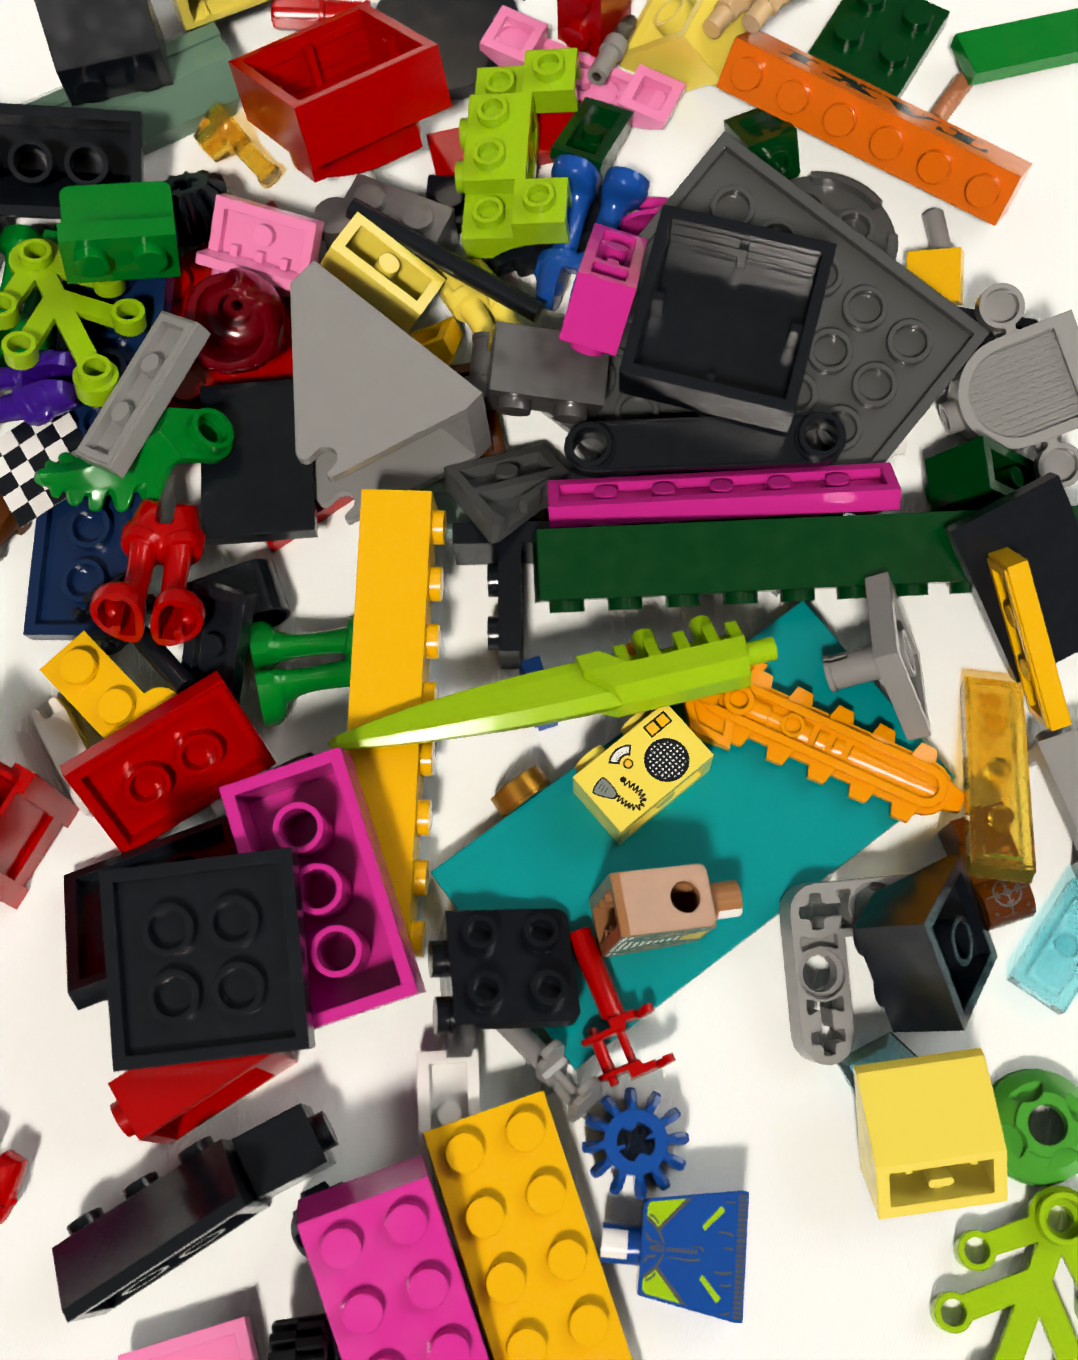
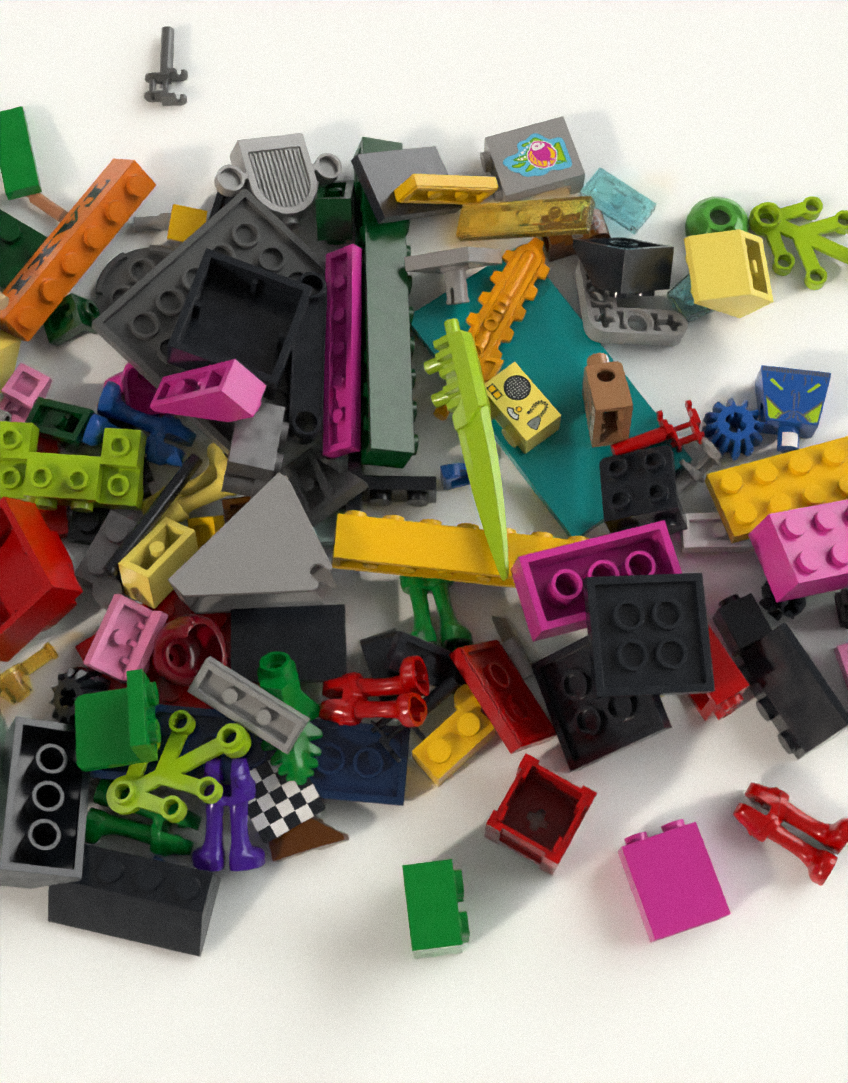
camera: 90 degrees left, 0 degrees up
(60, 736) = (482, 772): white piece -> none
(520, 790) = (522, 486): pearl gold tile -> none

